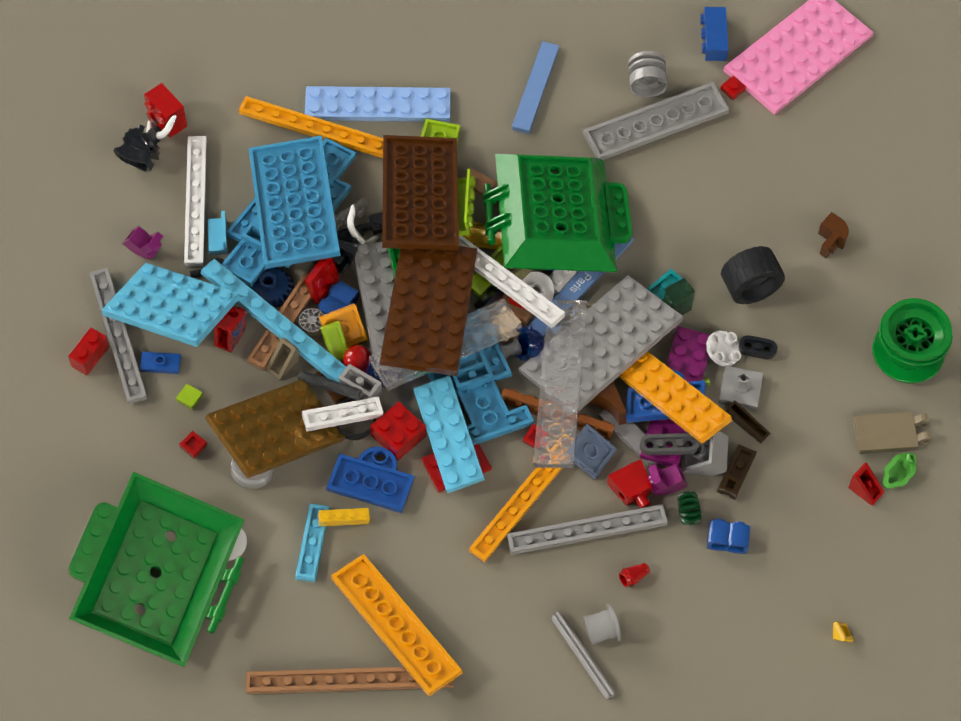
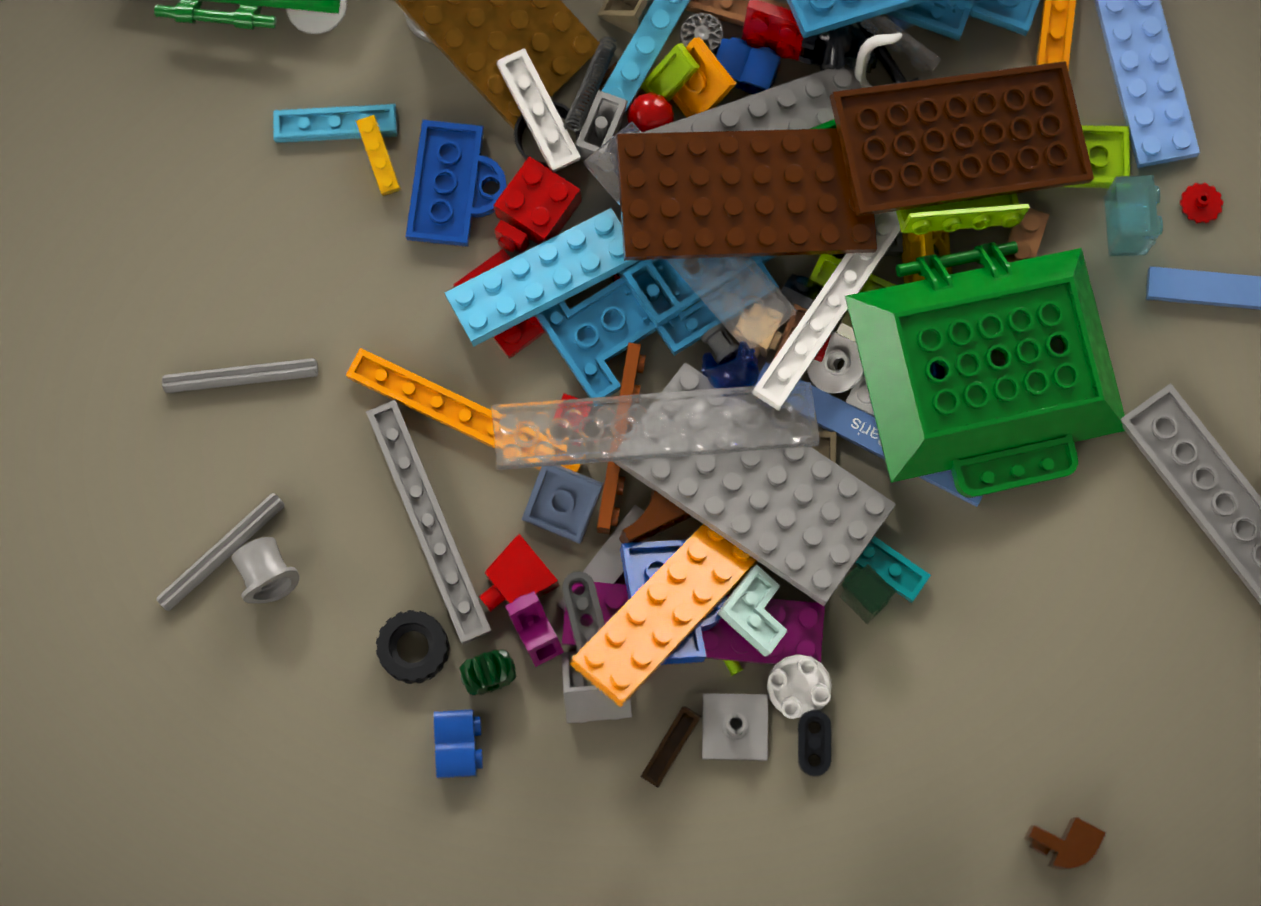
camera: 85 degrees right, 15 degrees up
(331, 680) = (125, 224): medium nougat plate -> none
(396, 625) = (214, 266): light orange plate -> none
(416, 450) = (511, 237): none -> red plate
(469, 625) = (240, 375): none -> light grey axle
(478, 95) = (1201, 203): none -> red piece
(483, 124) = (1132, 215): none -> clear light blue brick
(633, 574) = (365, 605): red cone -> none
(664, 536) = (408, 622): none -> black tyre
(679, 359) = (746, 611): none -> light aqua plate
(737, 471) = (576, 742): dark brown plate -> none
(752, 275) = (936, 710): black tyre -> none

